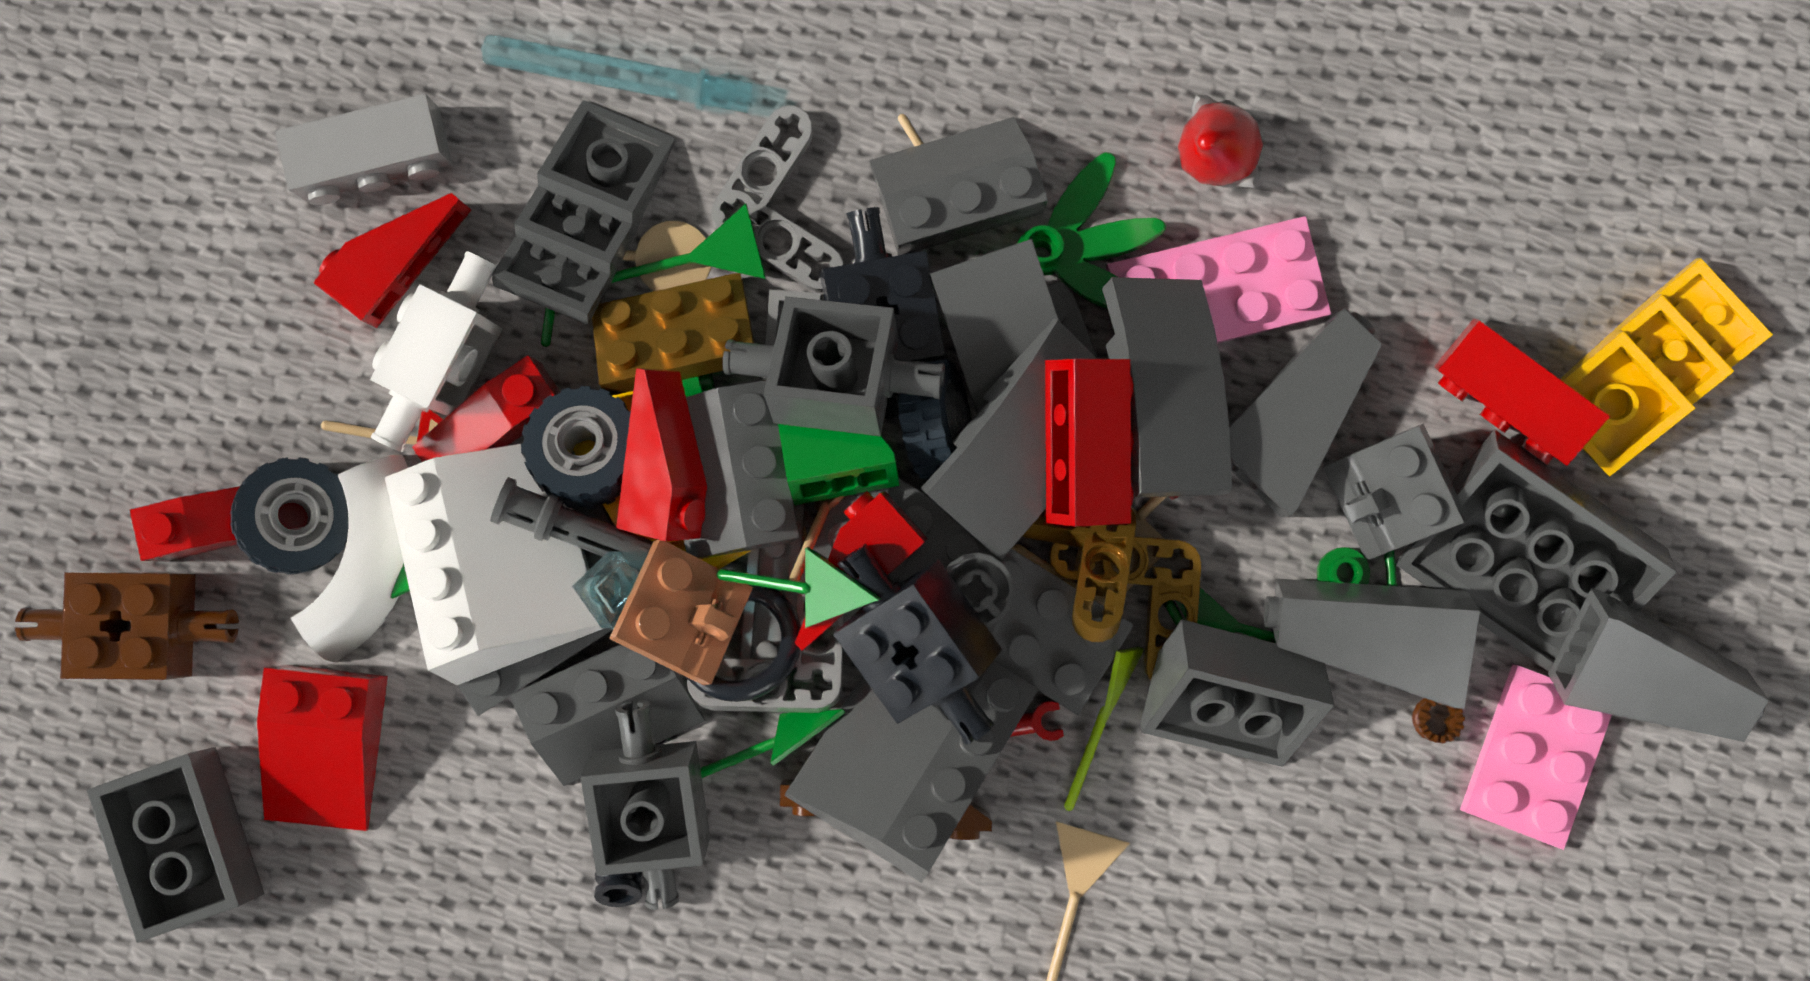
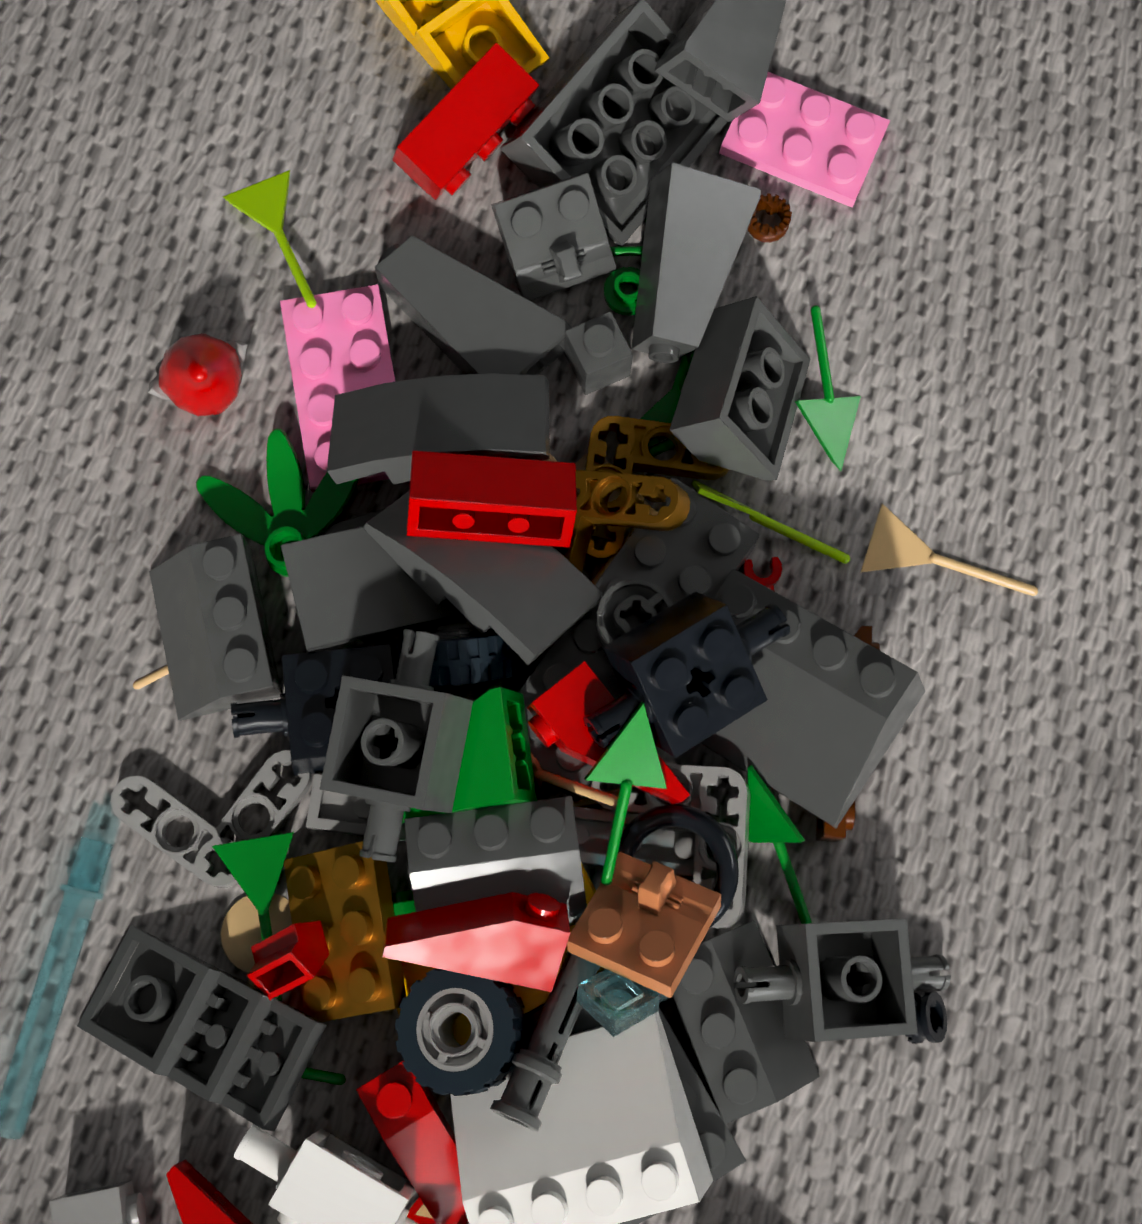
camera: 95 degrees left, 10 degrees down
(642, 284) = (288, 958): none -> red piece
(1217, 788) = (829, 417): none -> piece
(1268, 544) = (598, 353): none -> dark grey brick
(1413, 192) = (266, 205): none -> lime piece

